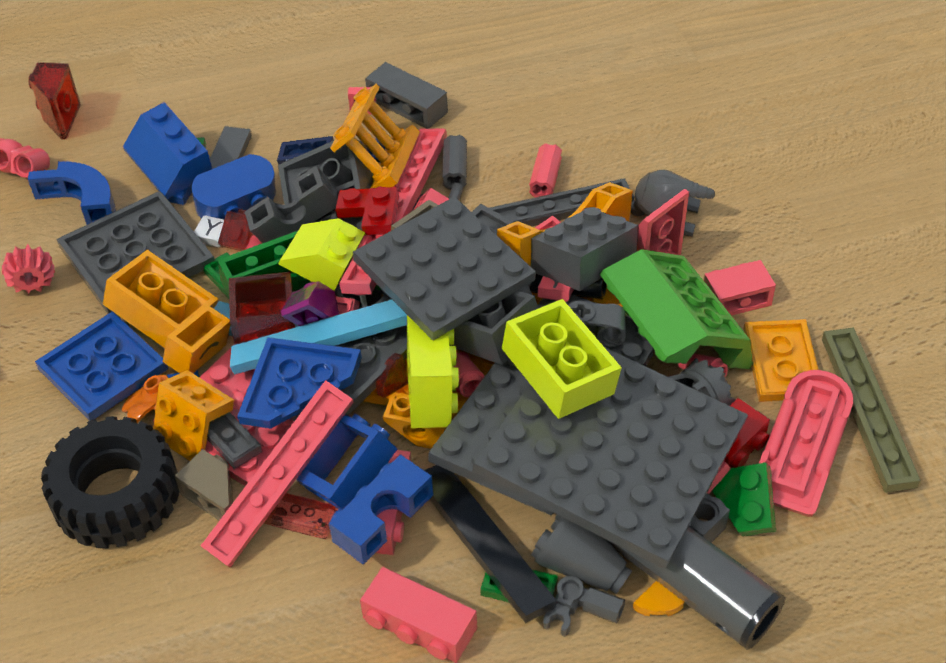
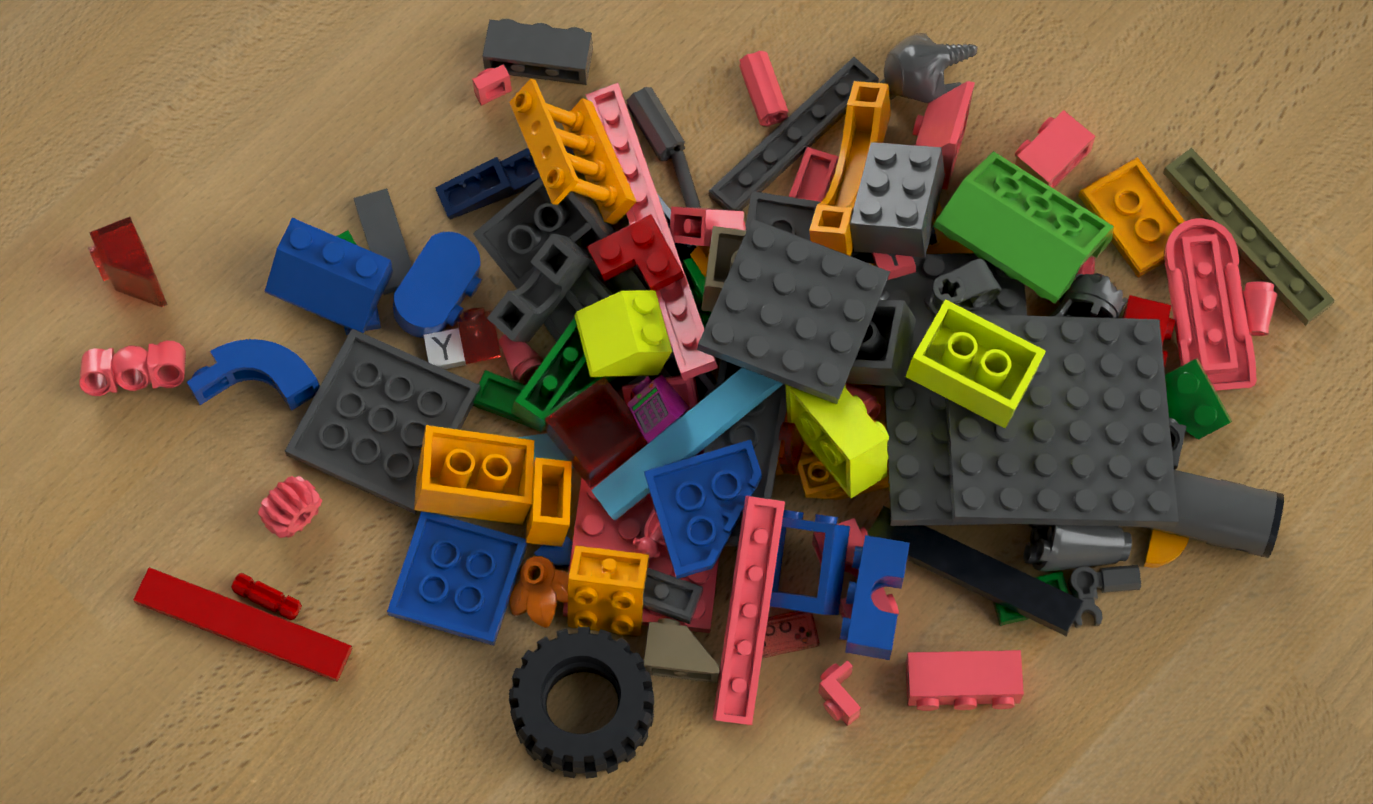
camera: 30 degrees left, 20 degrees up
(311, 564) = (838, 701): none -> coral bracket
(849, 458) = (1259, 306): none -> coral cone

